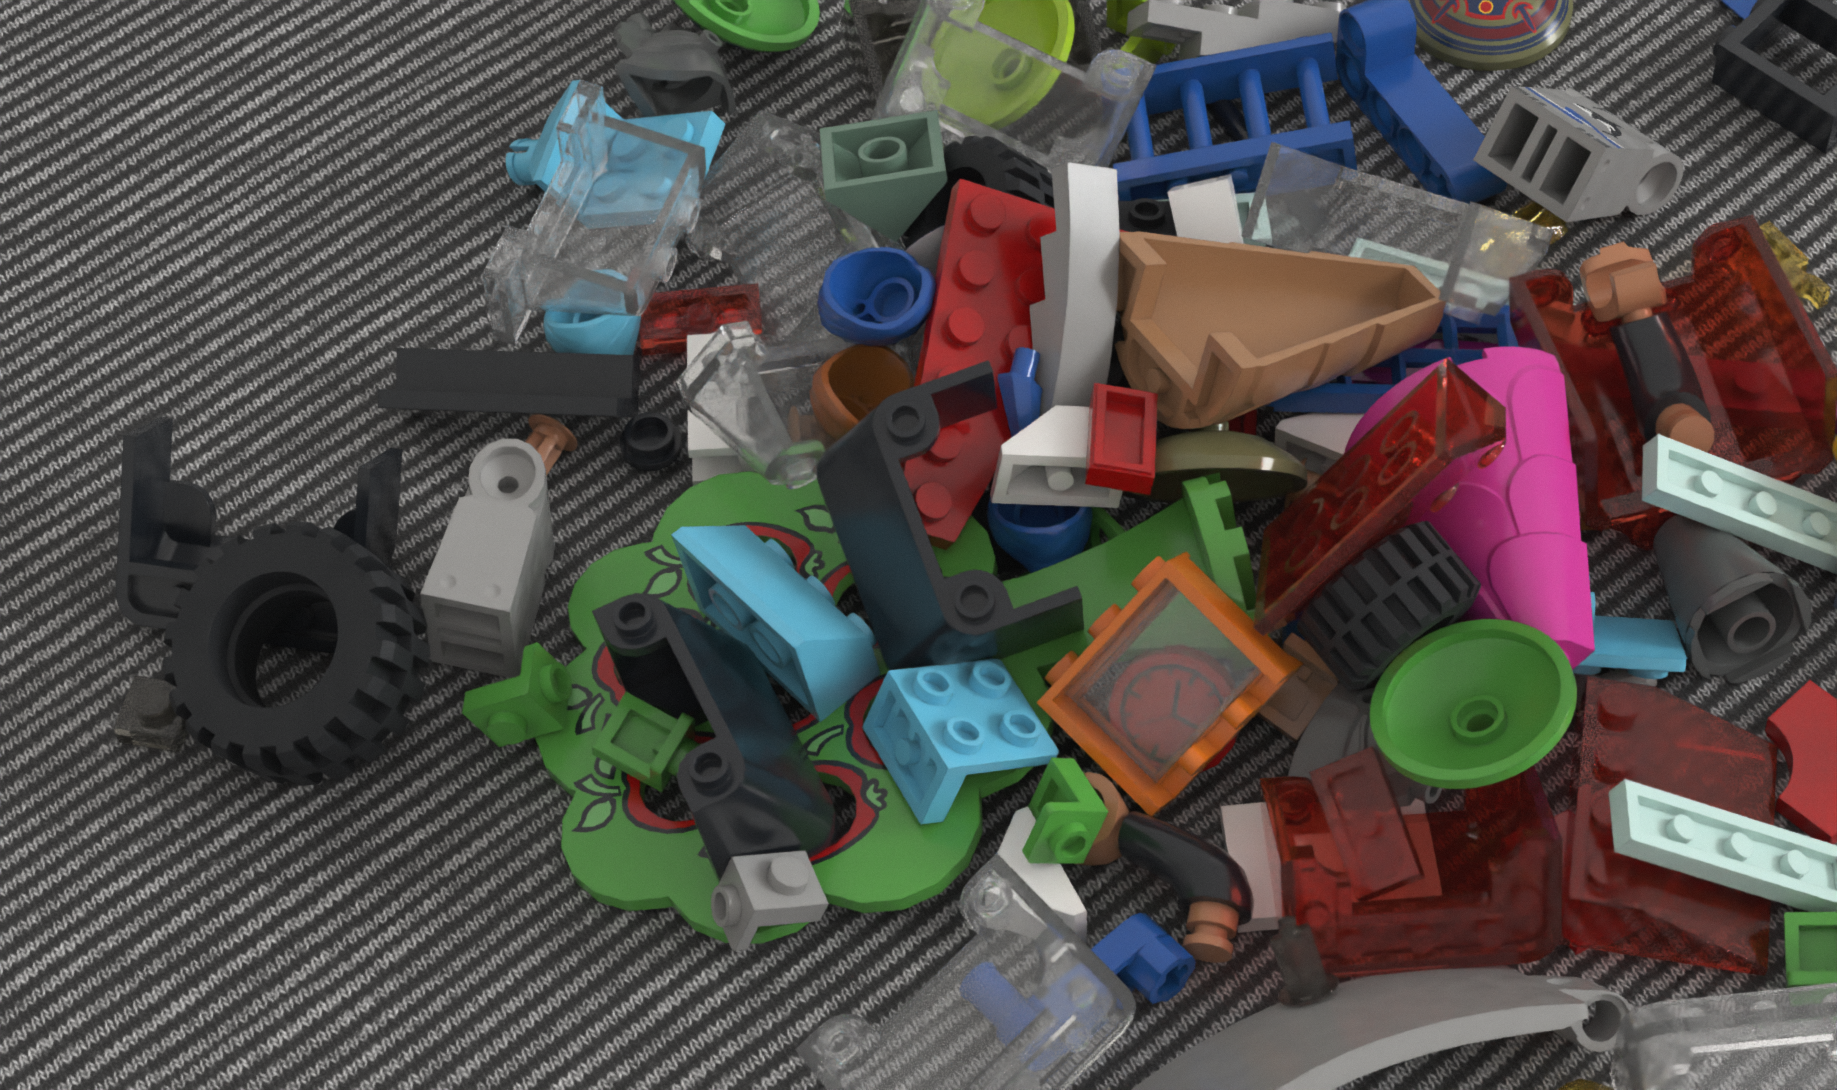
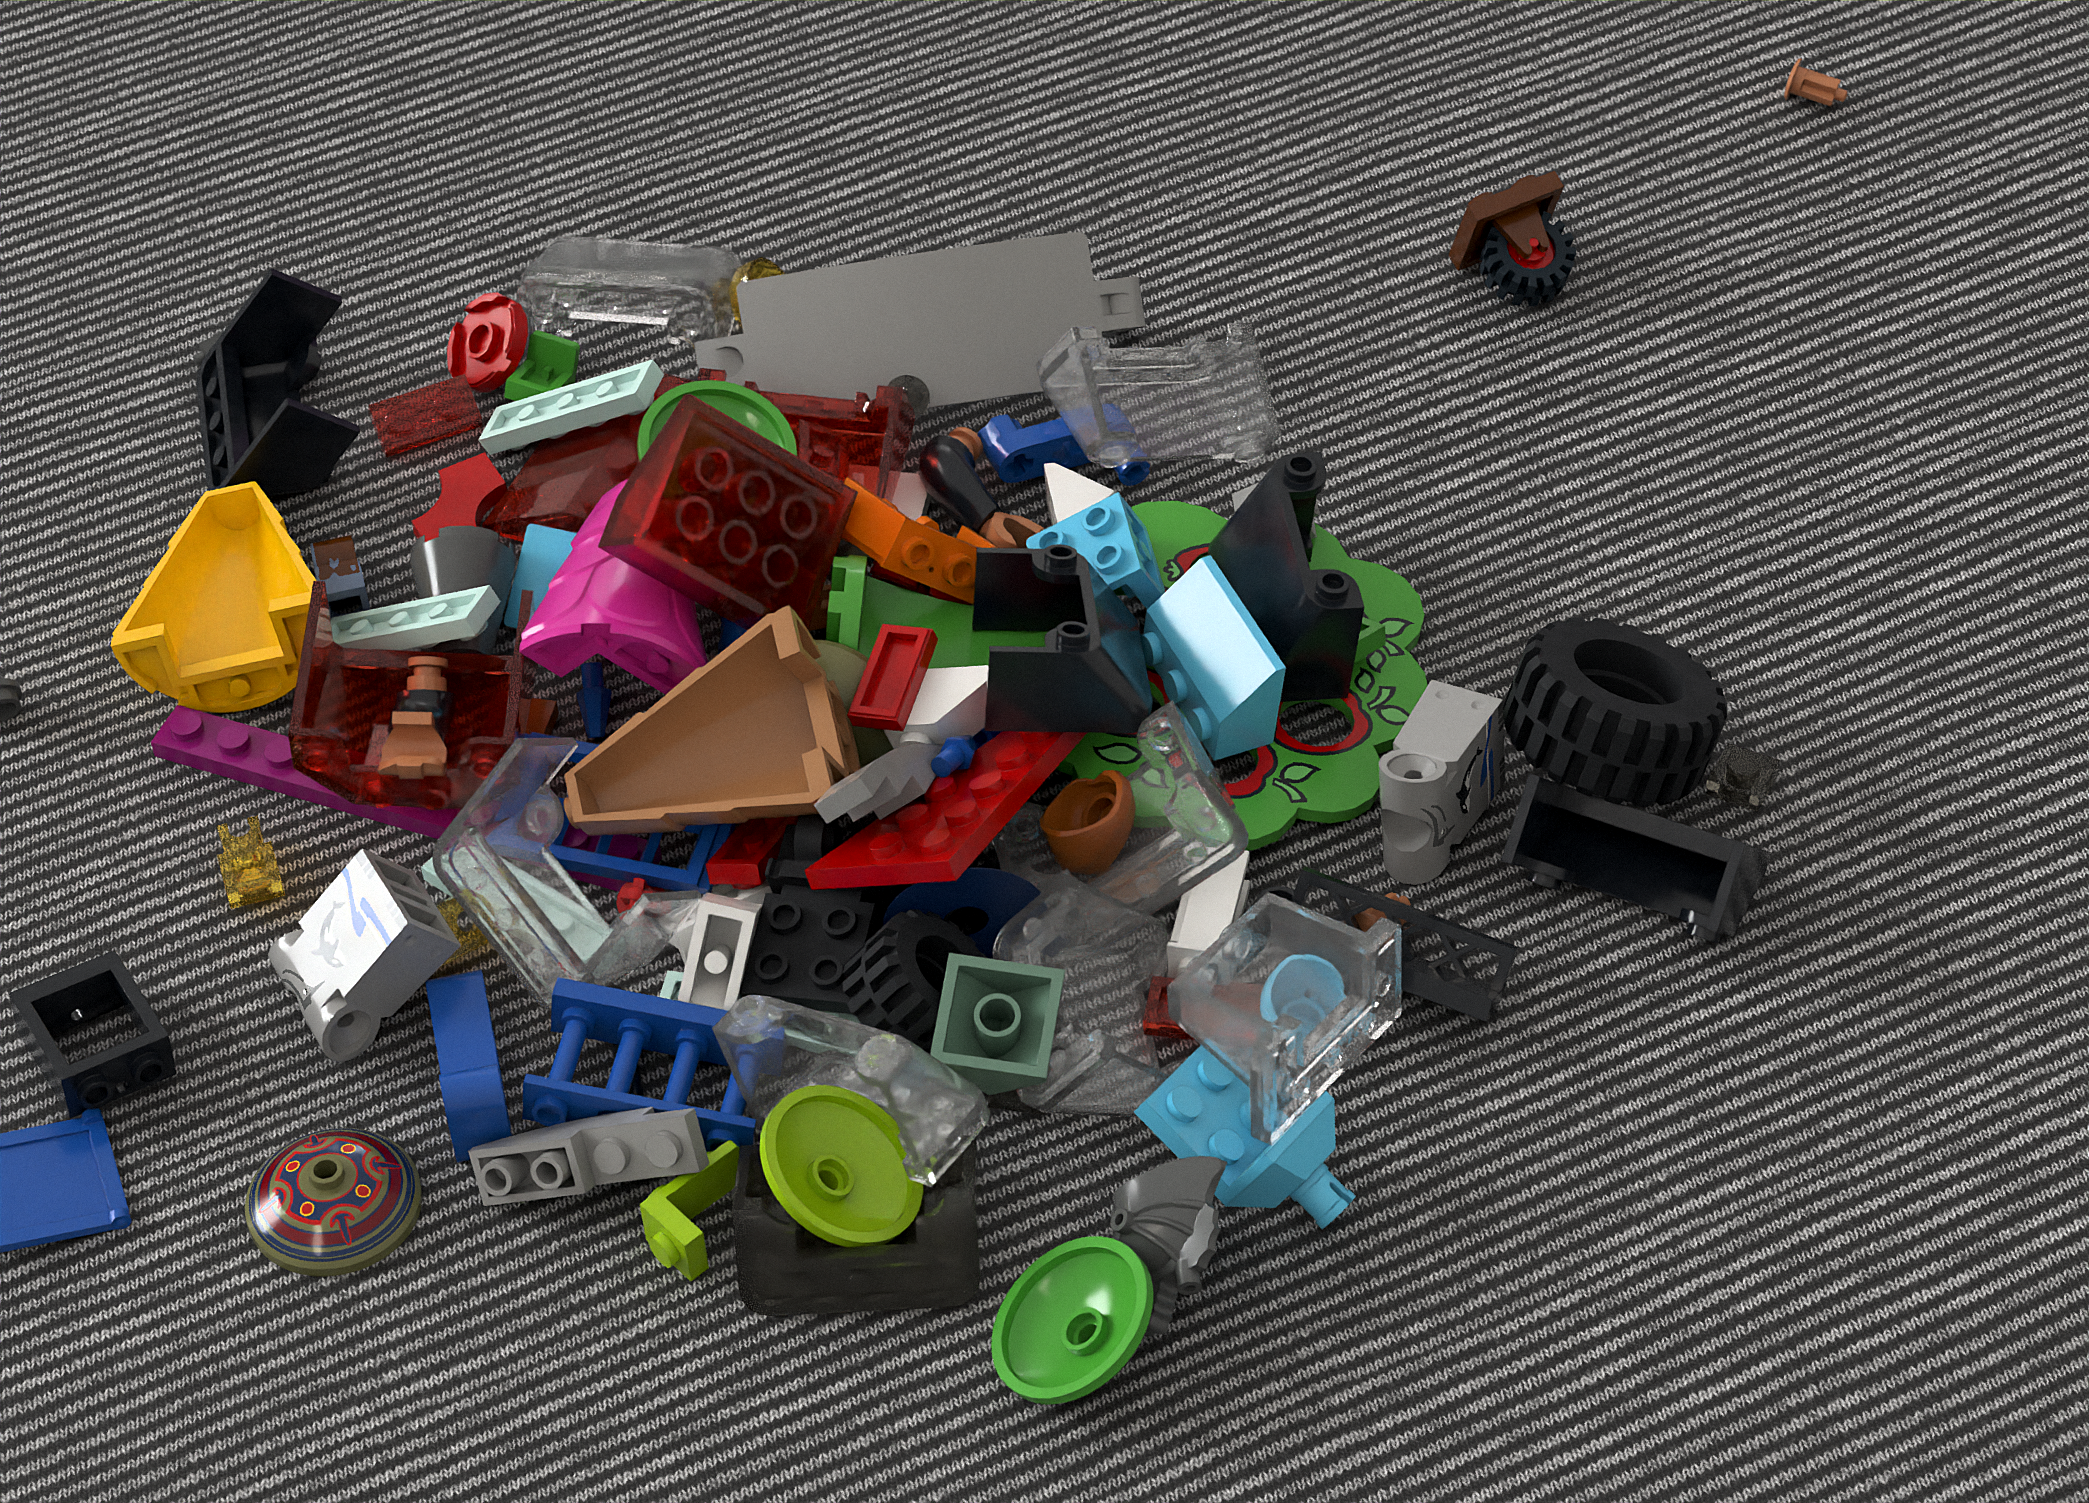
camera: 165 degrees left, 5 degrees down
(523, 704) = (1413, 684): bright green bracket -> none
(875, 296) = (1054, 836): blue hair -> none
(1065, 815) = (1034, 493): bright green bracket -> none

